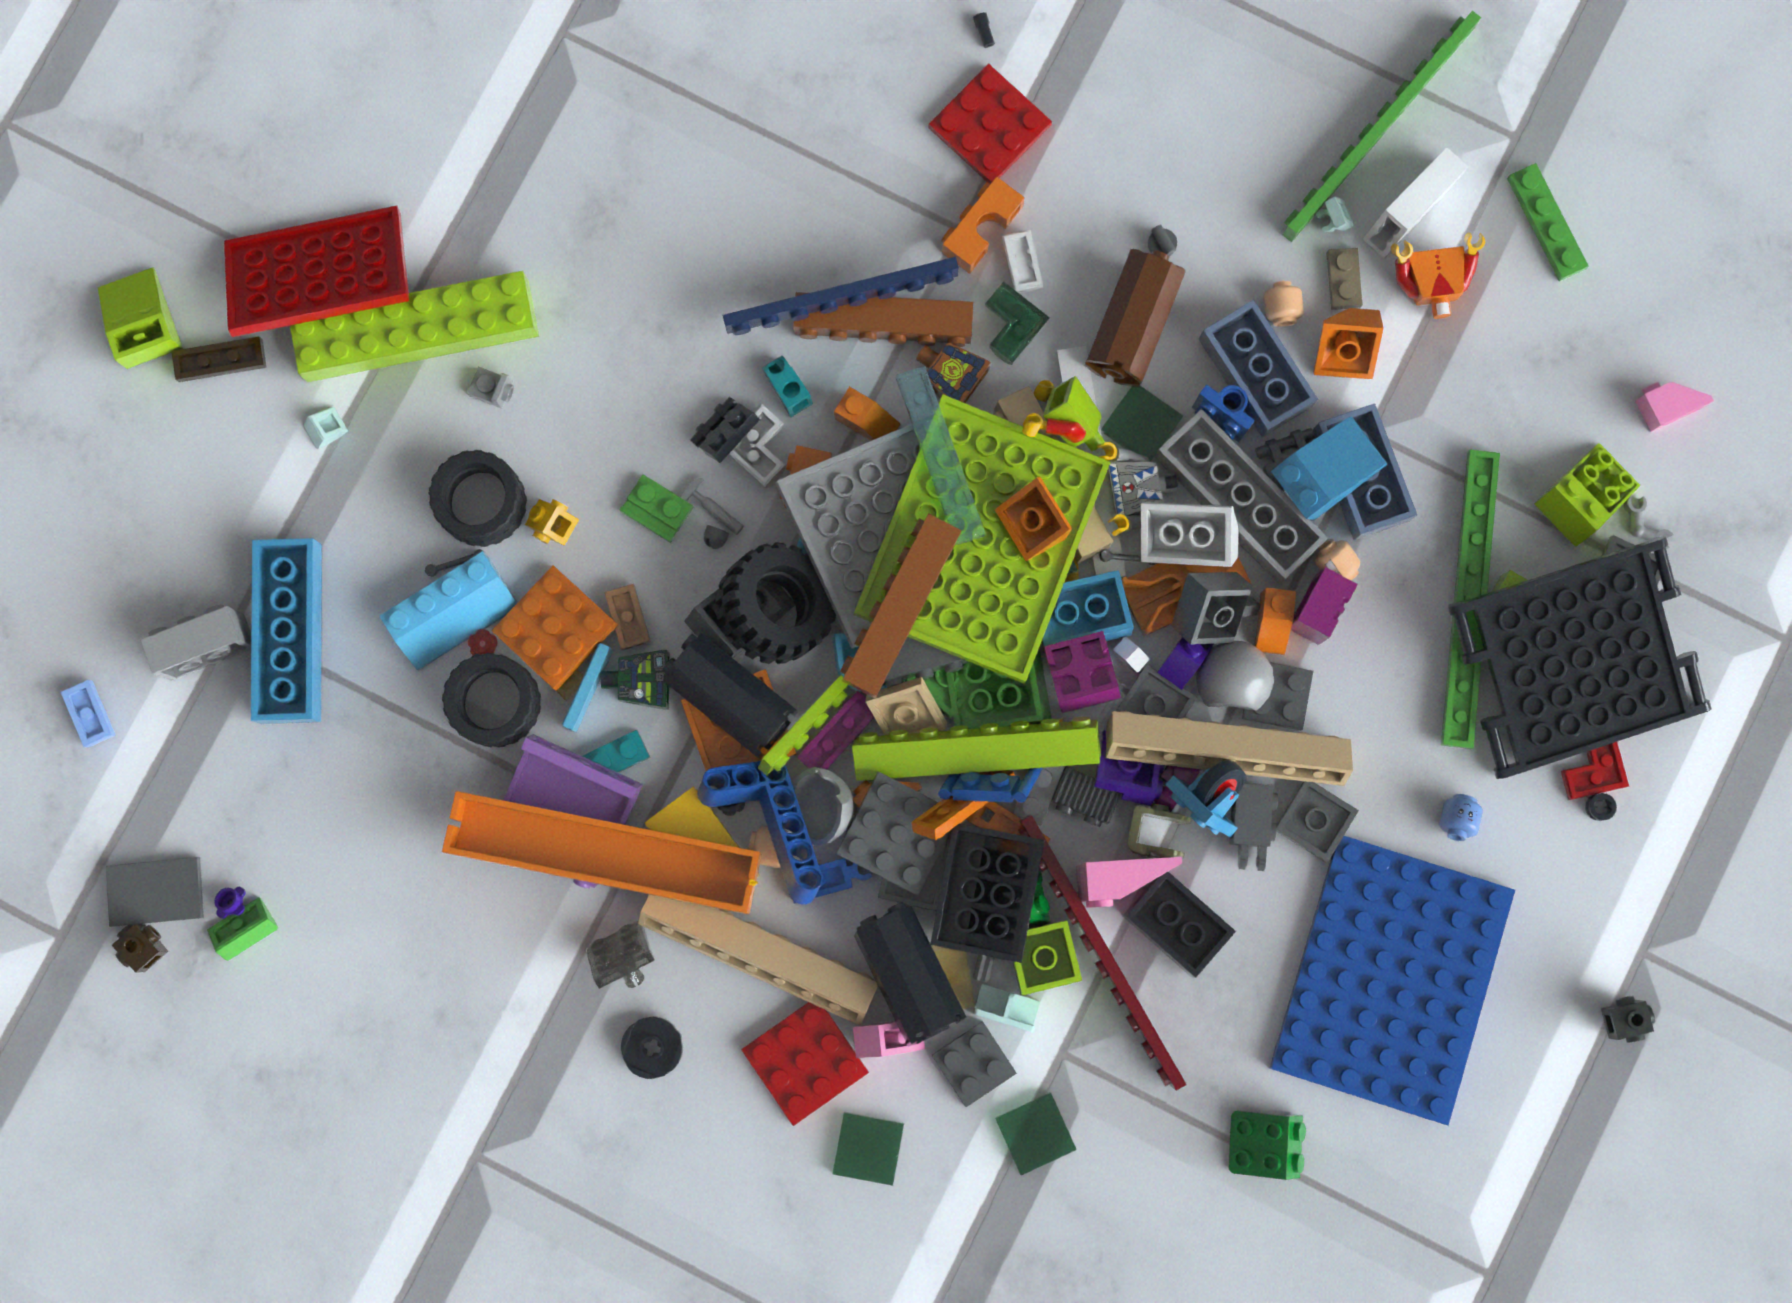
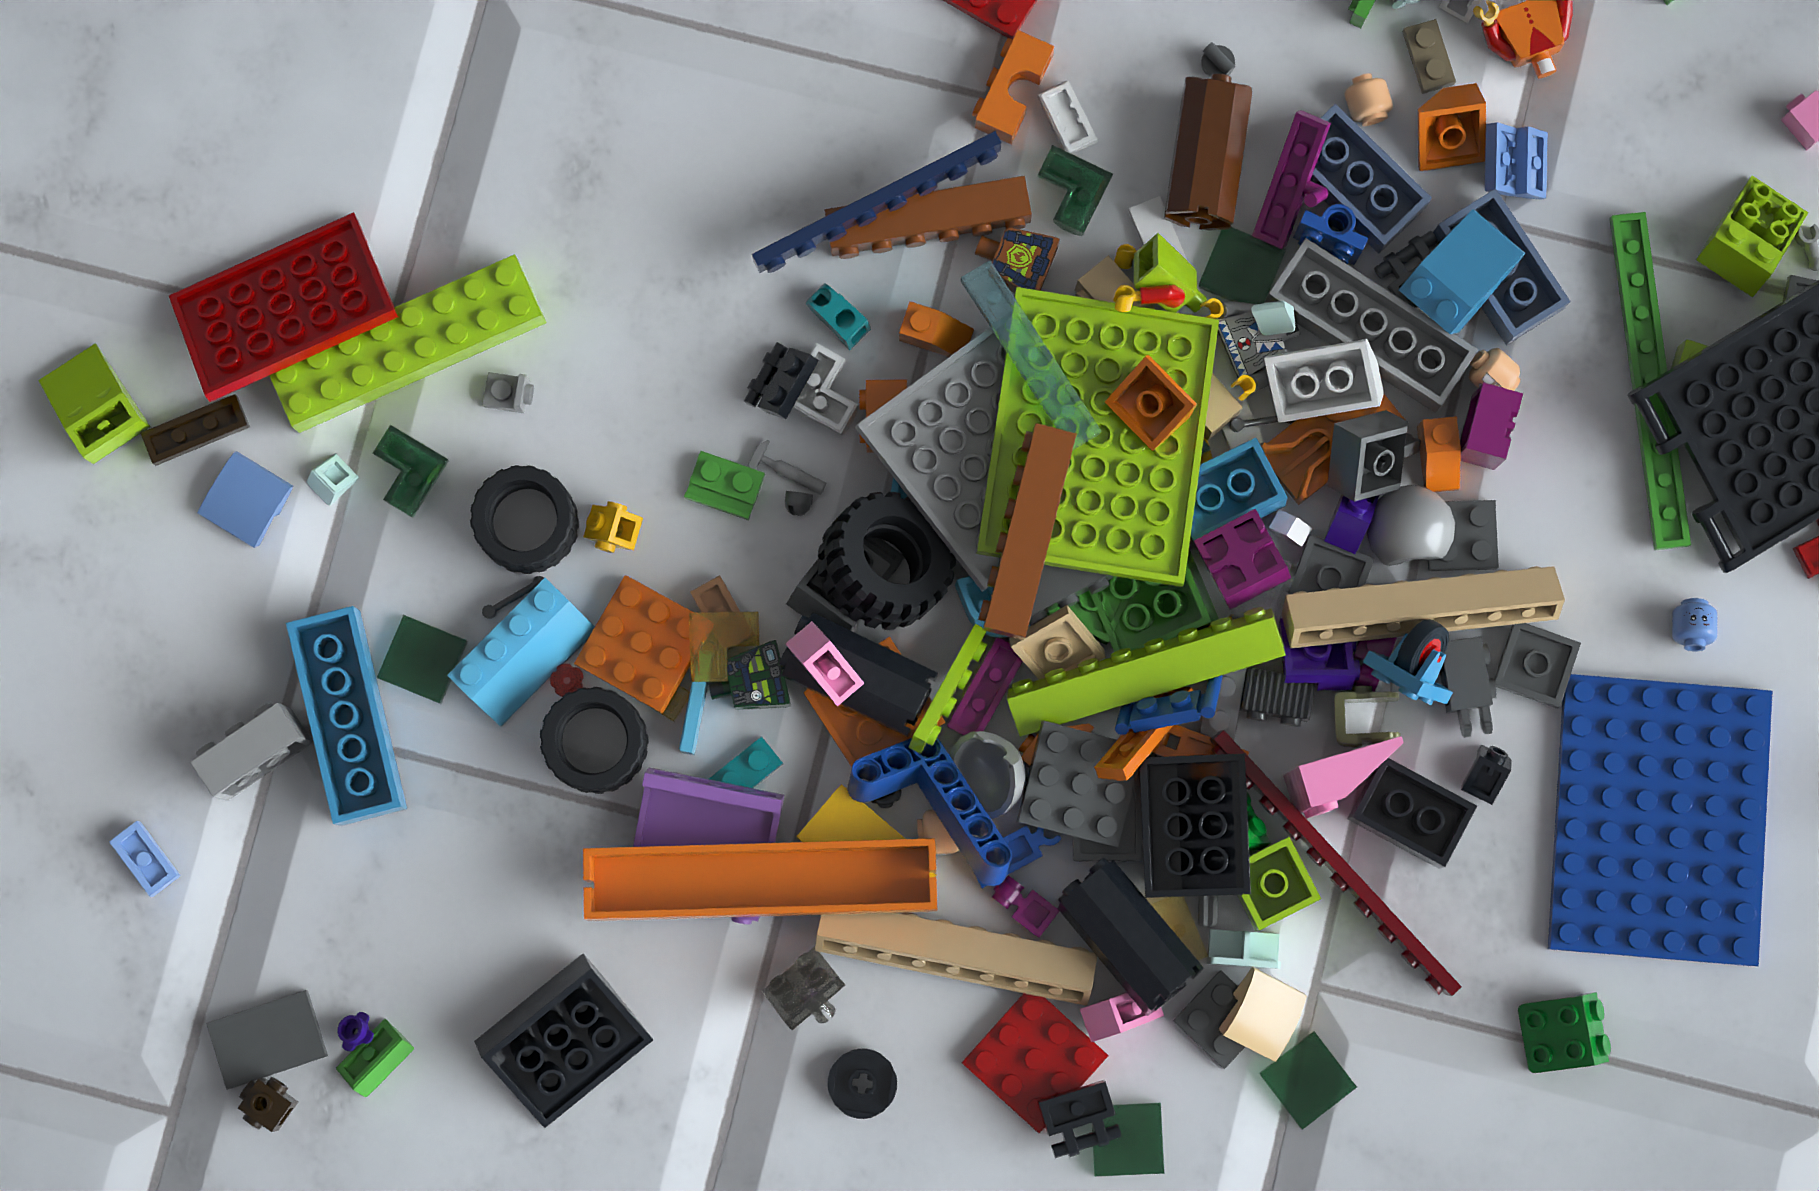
camera: 10 degrees left, 0 degrees up
(247, 427) = (245, 499): none -> medium blue slope
(363, 596) = (422, 659): none -> clear green tile
(398, 435) = (418, 467): none -> clear green brick
(404, 951) = (563, 1041): none -> black slope
(611, 634) = (712, 635): none -> clear yellow tile
(698, 679) = (824, 663): none -> bright pink slope
(830, 1113) = (1077, 1108): none -> black plate
(833, 933) = (1032, 912): none -> magenta plate
(1010, 1068) = (1264, 1014): none -> slope
(1158, 470) = (1274, 317): none -> light aqua slope
(1201, 356) = (1292, 180): none -> magenta plate
(1252, 905) = (1487, 773): none -> black bracket
(1398, 384) = (1516, 161): none -> medium blue slope

